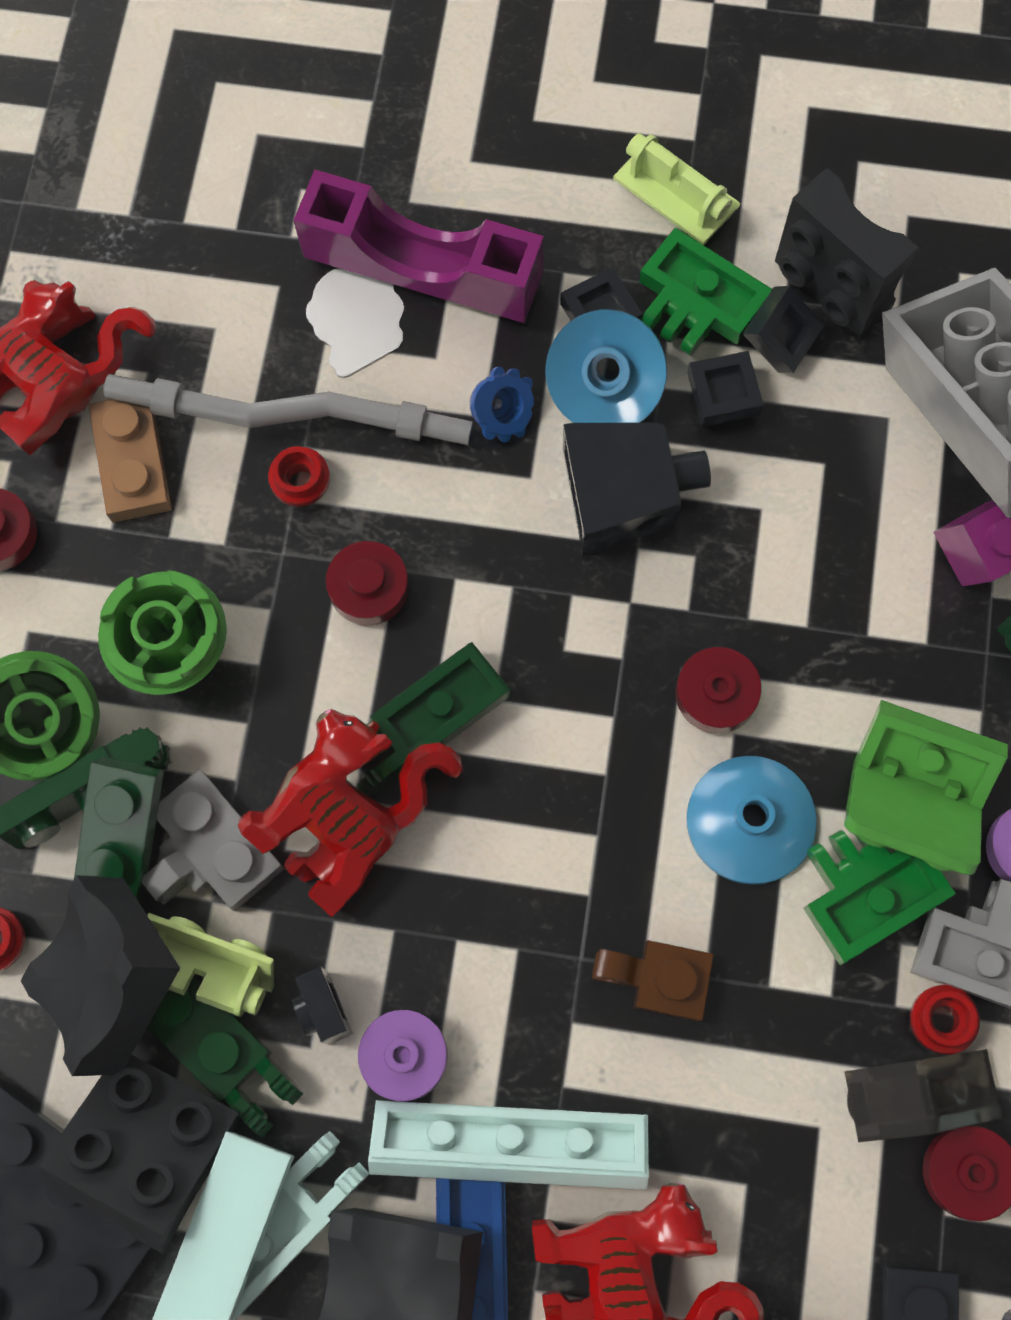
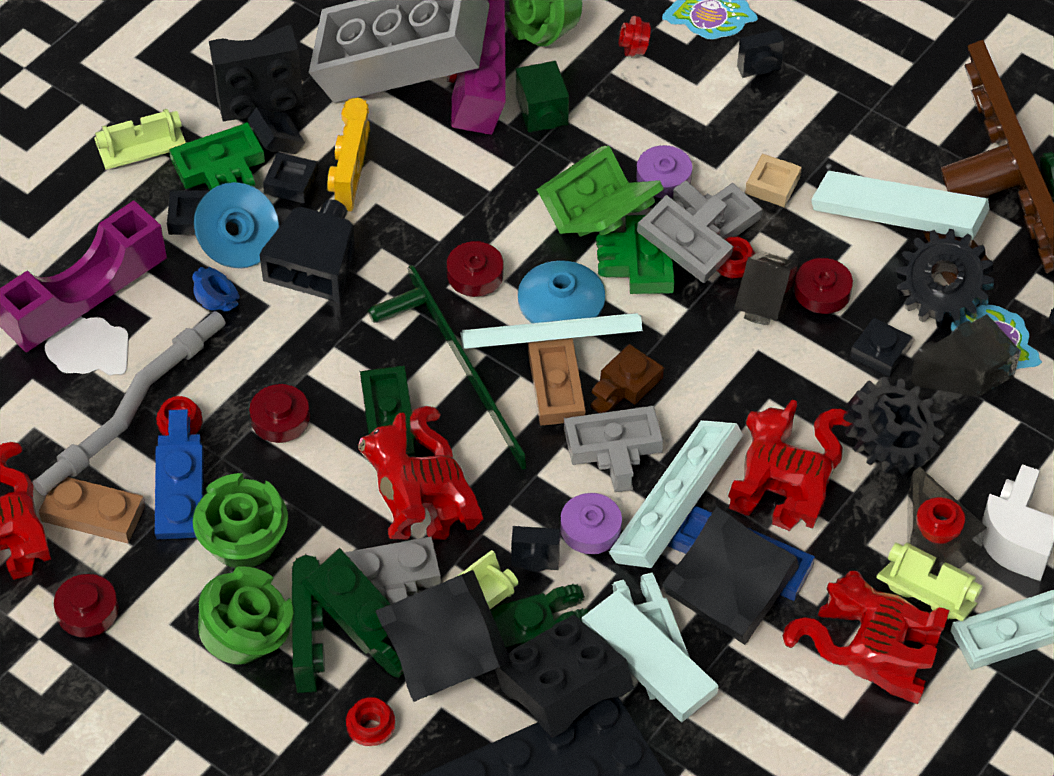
camera: 65 degrees left, 20 degrees down
(208, 523) = (178, 478): none -> blue hinge
(547, 1017) = (614, 441): none -> light grey hinge
(599, 891) = (556, 380): none -> medium nougat plate
(631, 641) = (420, 296): none -> dark green piece
(671, 844) = (551, 330): none -> light aqua tile
(806, 435) = (350, 152): none -> yellow hinge
(923, 947) = (689, 235): none -> light grey hinge

